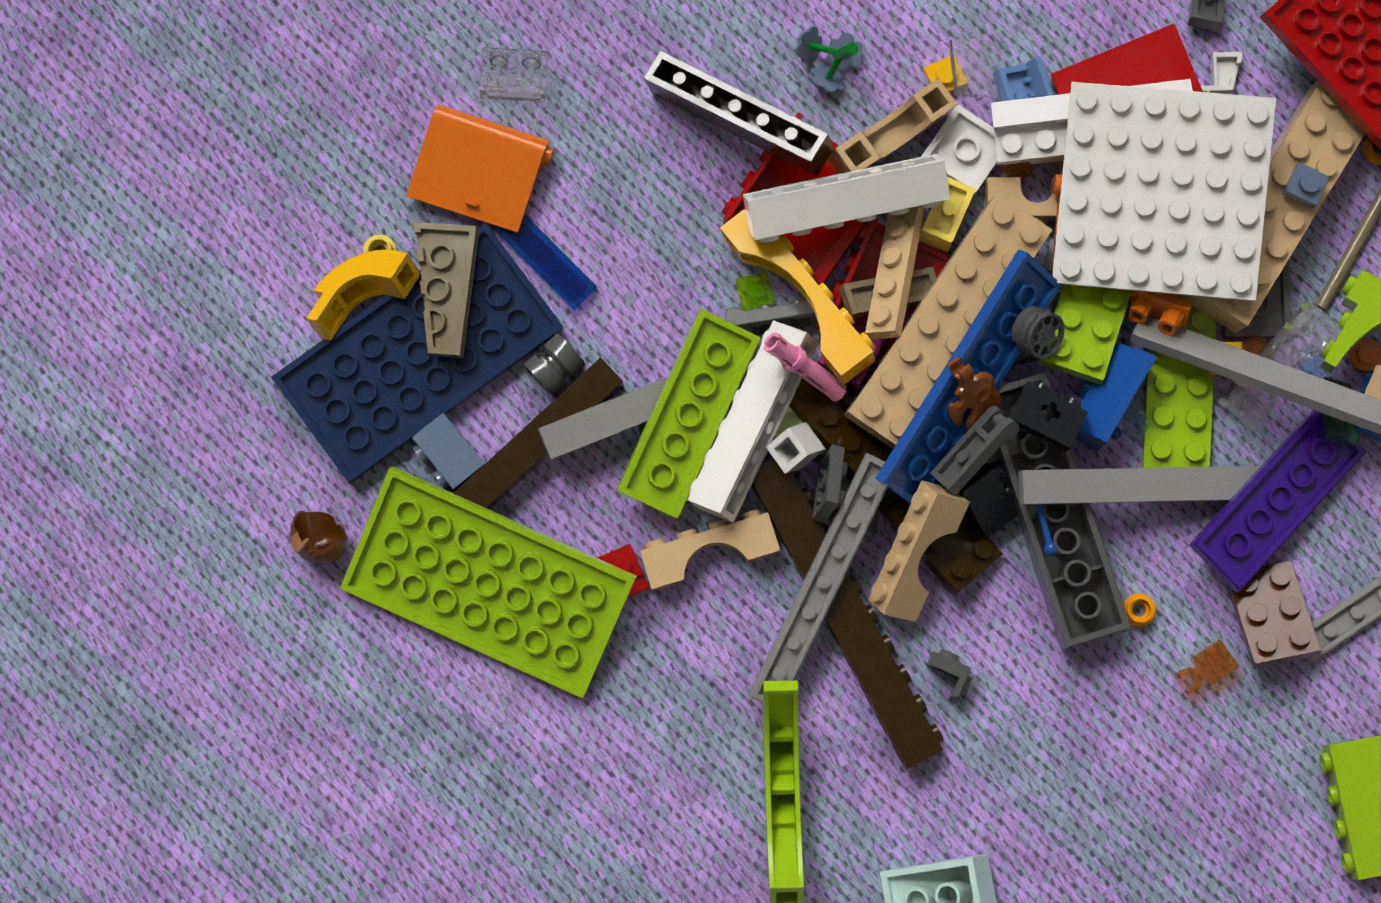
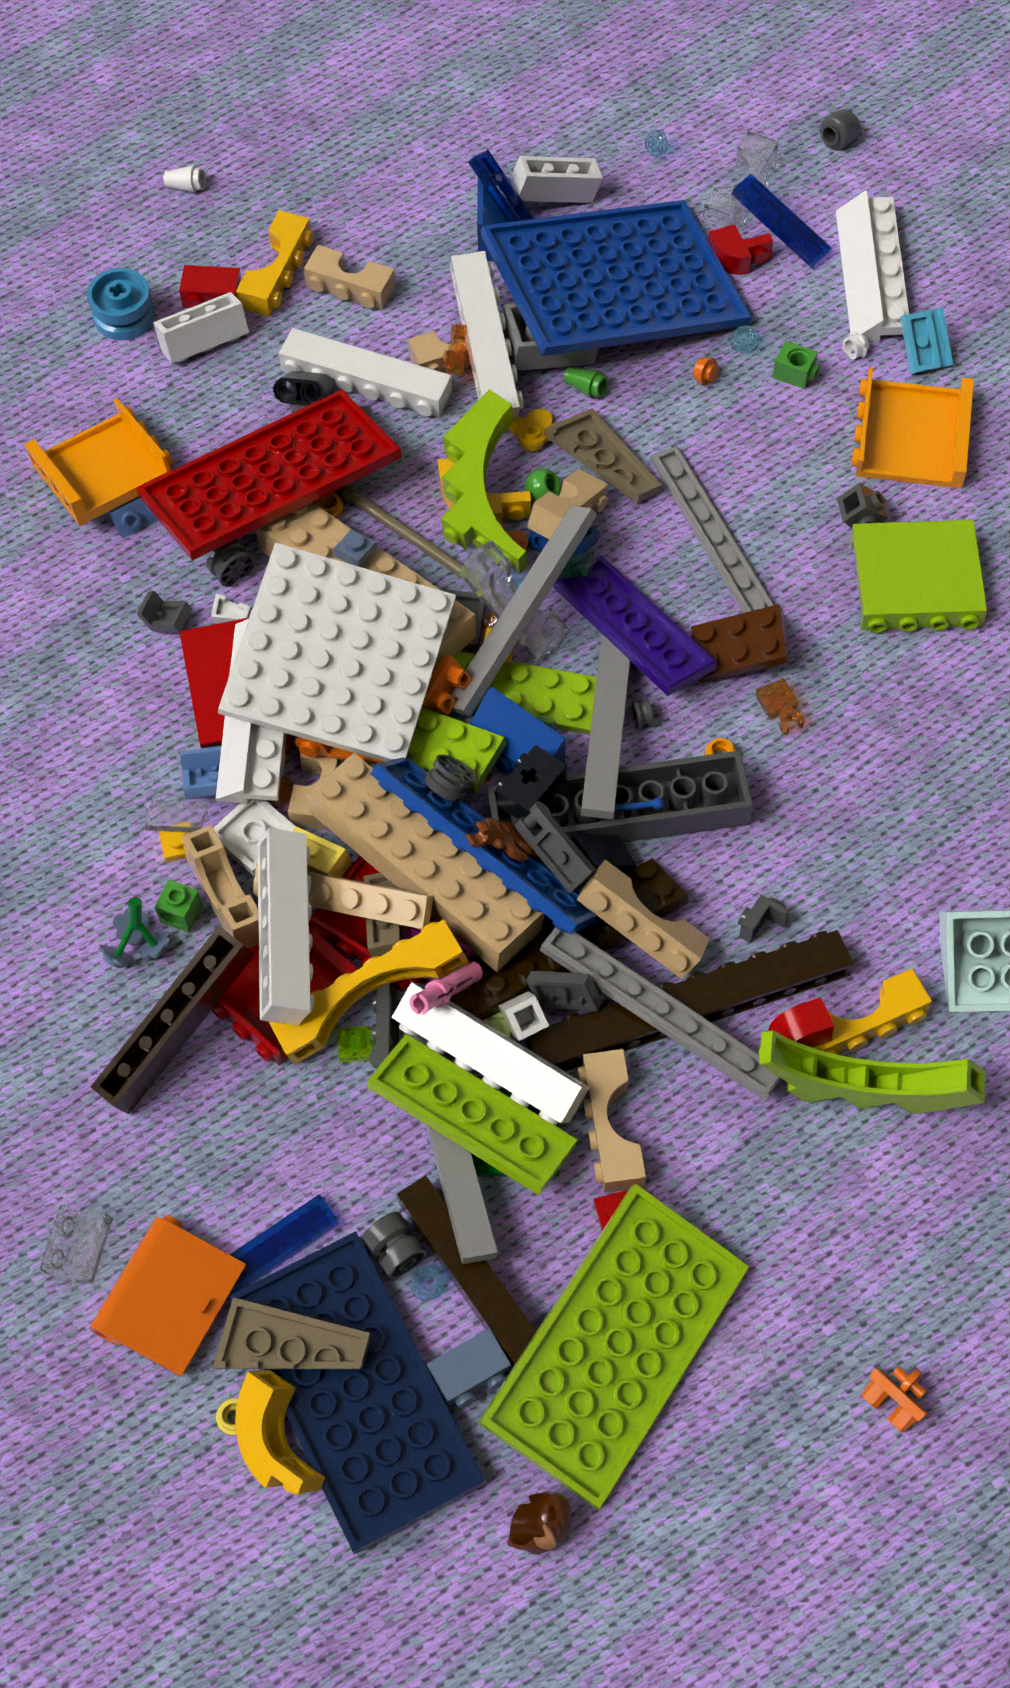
camera: 80 degrees left, 20 degrees down
(482, 851) = (883, 1386): none -> orange hips
(527, 390) = (421, 1273): none -> clear light blue plate
(822, 722) = (805, 1023): none -> red brick
(870, 92) = (178, 906): none -> bright green brick
(879, 821) = (901, 1002): none -> yellow arch
(1171, 522) = (643, 714): none -> dark grey bush
(1279, 60) = (230, 562): none -> dark grey wheel

